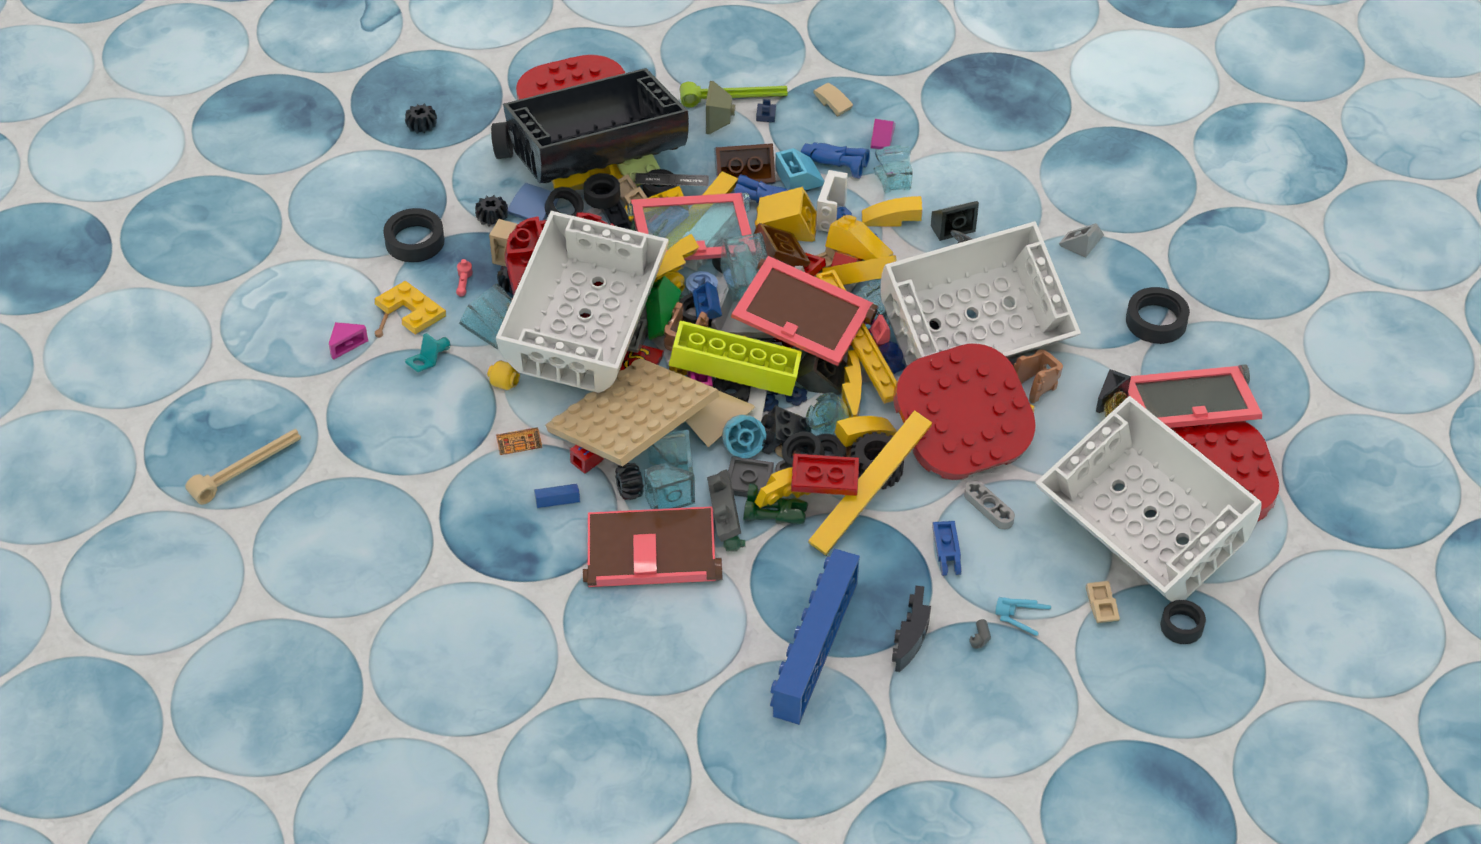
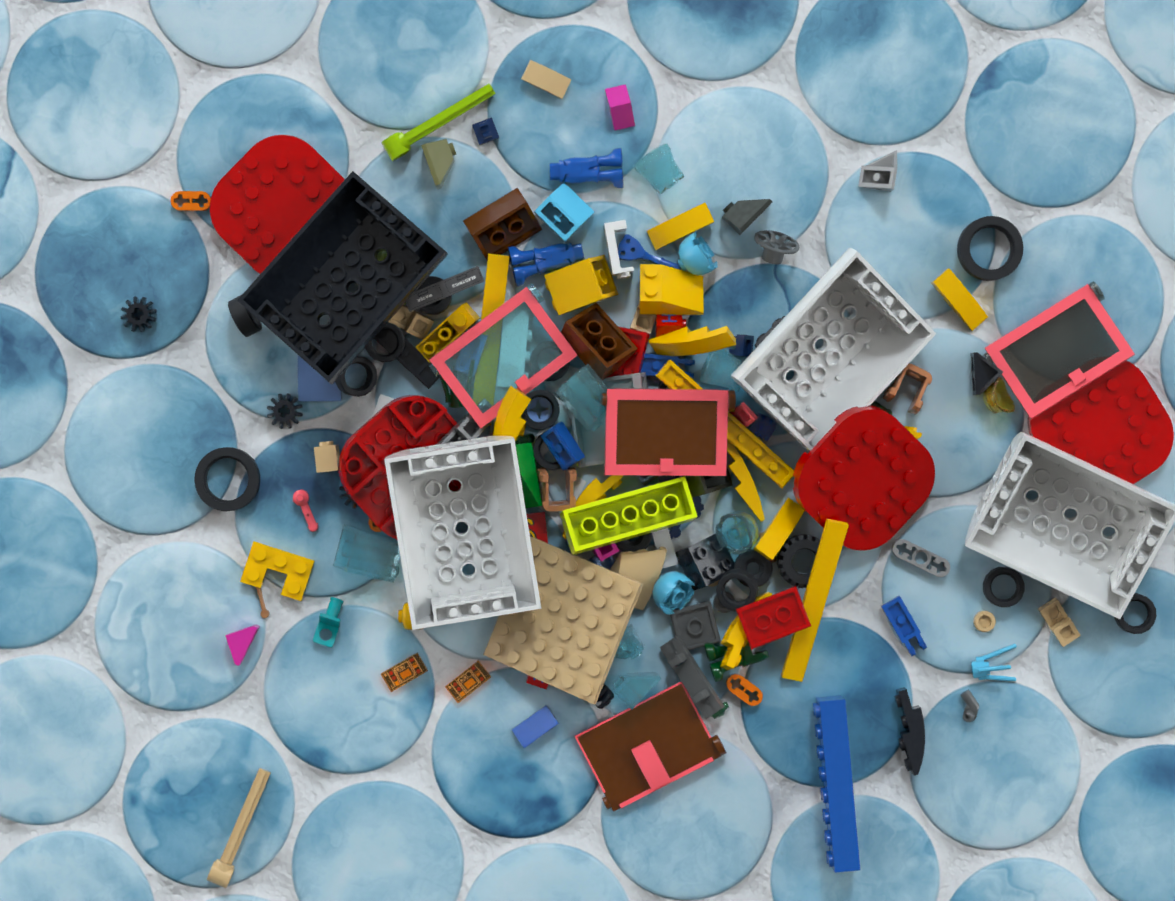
camera: 25 degrees left, 40 degrees up
(467, 413) = (404, 672): none -> clear orange tile
(507, 74) = (190, 206): none -> orange beam
(701, 263) = (555, 410): none -> black tyre
(771, 538) = (747, 686): none -> orange beam
(893, 230) = (696, 255): none -> medium azure cylinder
(1027, 575) = (984, 621): none -> tan tile
(1055, 566) = (1020, 587): none -> black tyre
(1113, 336) = (959, 299): none -> yellow slope

